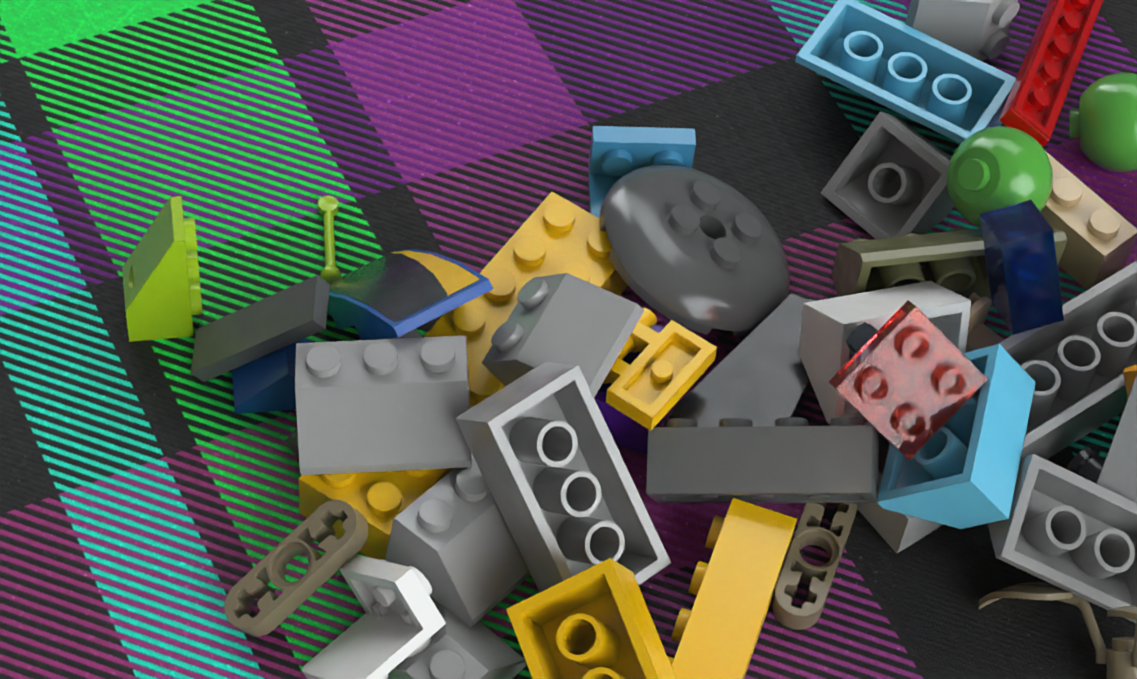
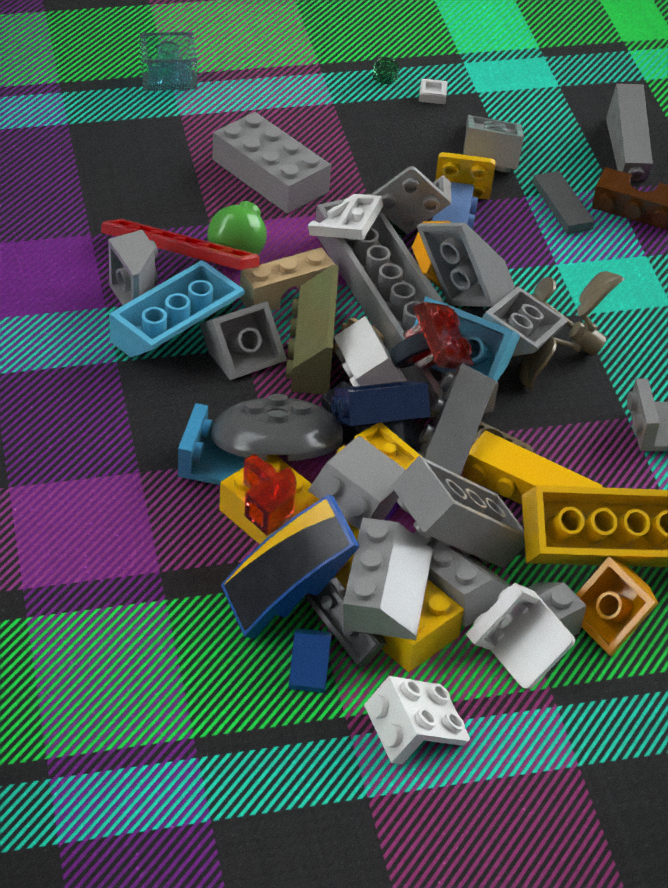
camera: 75 degrees left, 10 degrees down
(163, 278) = (237, 685): lime slope -> none
(199, 527) = (411, 712): none -> white bracket
(260, 328) = (289, 647): dark grey tile -> none
(276, 608) = (477, 650): dark tan beam -> none
(328, 209) = (170, 613): lime hinge -> none
(513, 245) = (270, 494): none -> clear red brick
(760, 344) = (381, 402): none -> dark blue window
(998, 170) = (288, 278): bright green brick -> none
(1022, 266) = (357, 284): clear blue brick -> none

